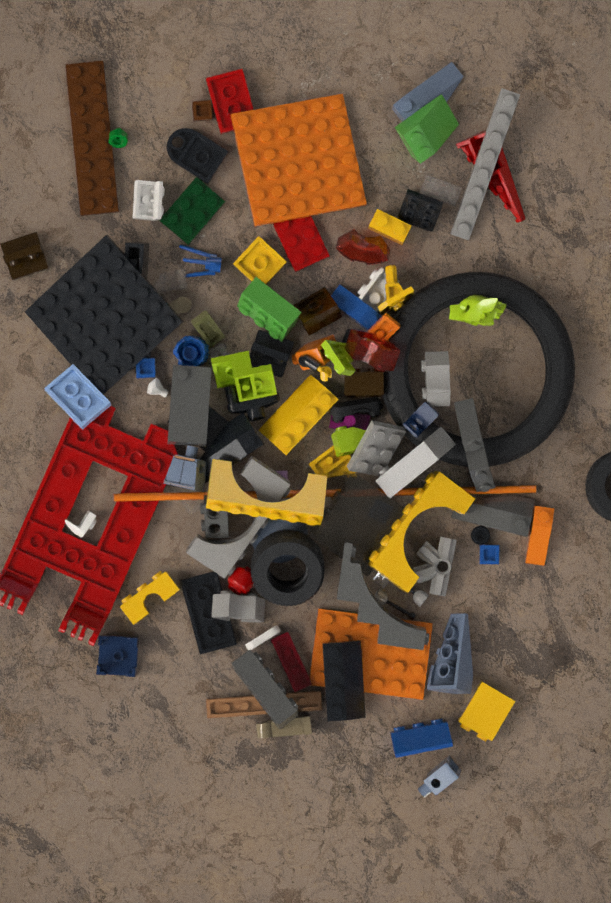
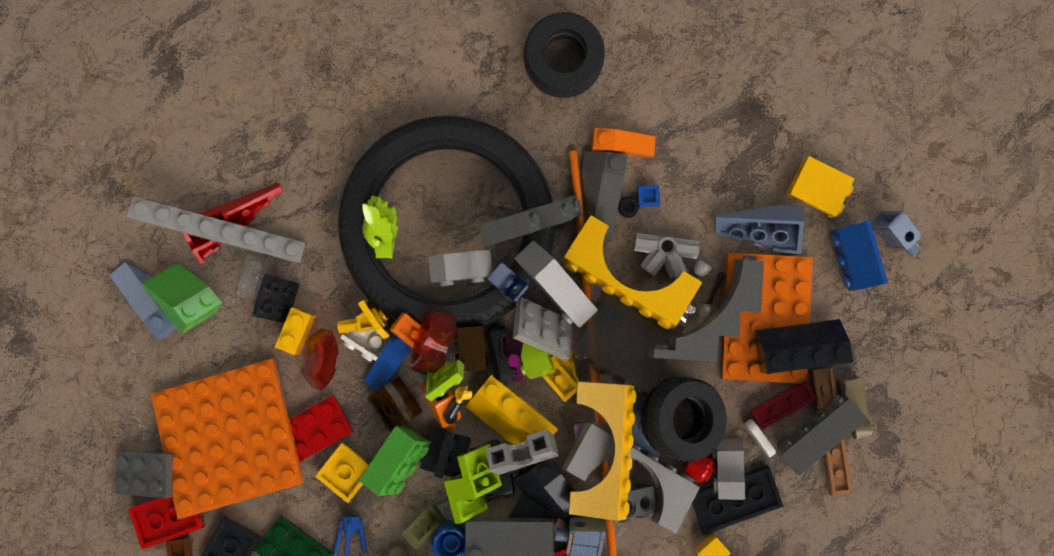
camera: 90 degrees left, 0 degrees up
(265, 408) = (508, 457): none -> light grey arch
(272, 85) = (144, 473): none -> dark grey plate

